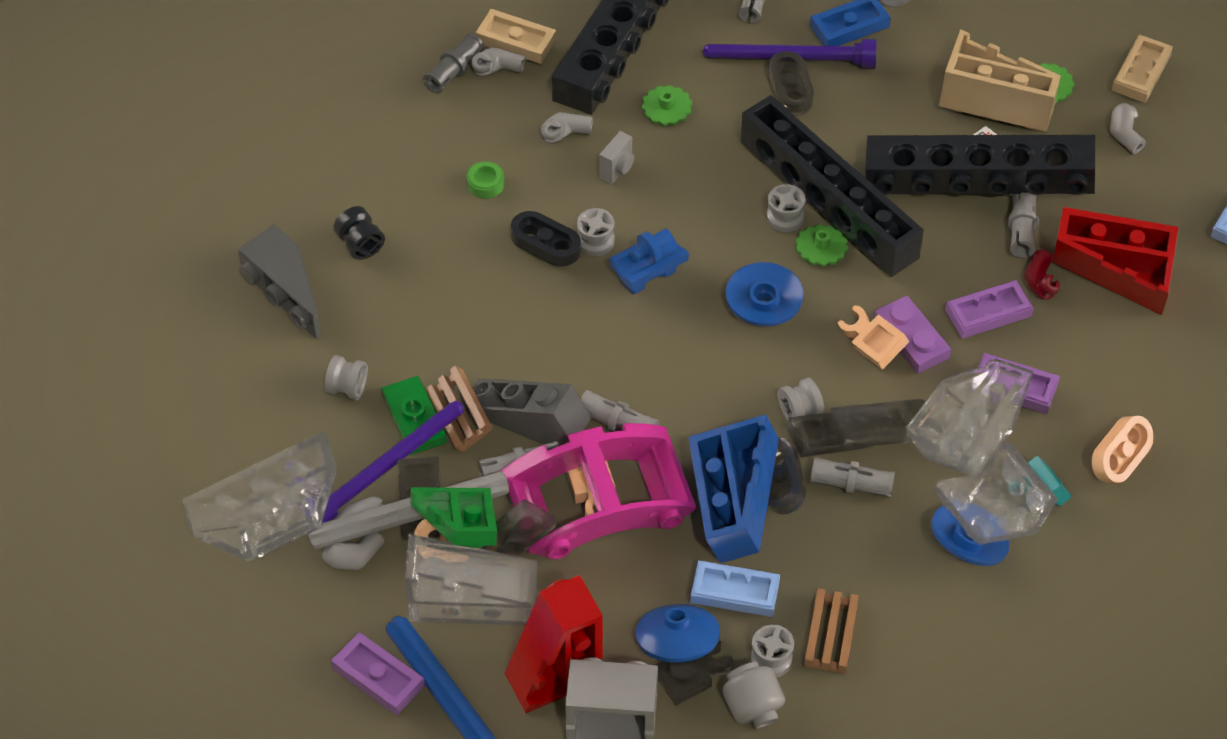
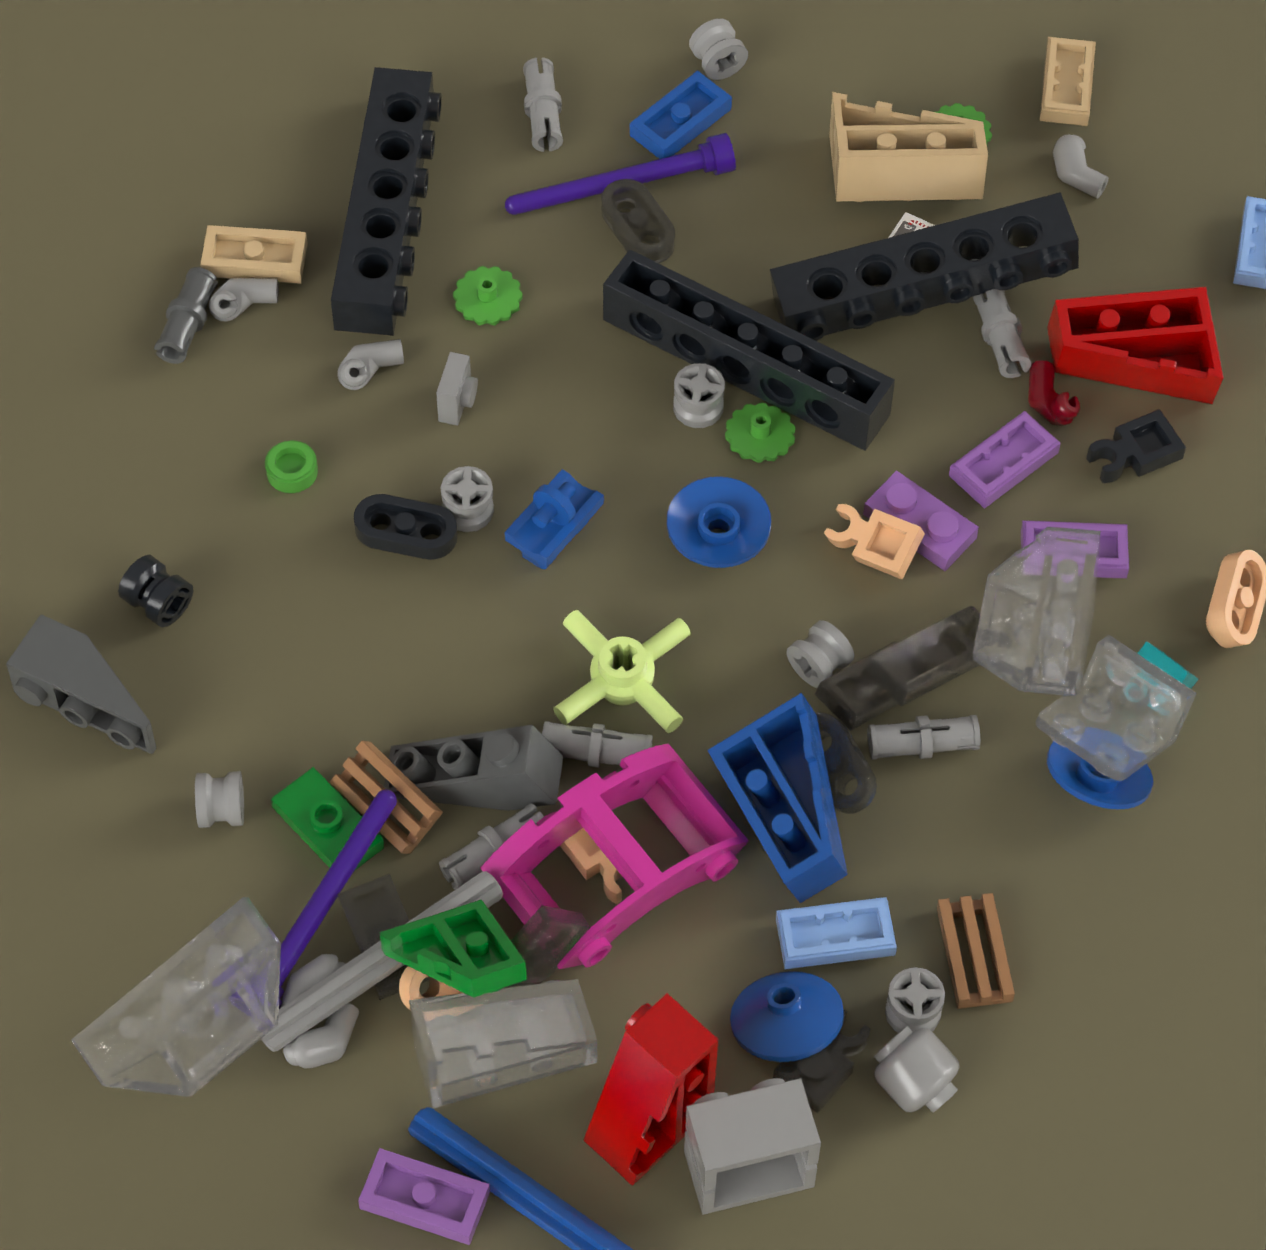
camera: 20 degrees left, 5 degrees up
(656, 373) = (622, 671): none -> yellowish green bar
(1094, 325) = (1140, 443): none -> black plate

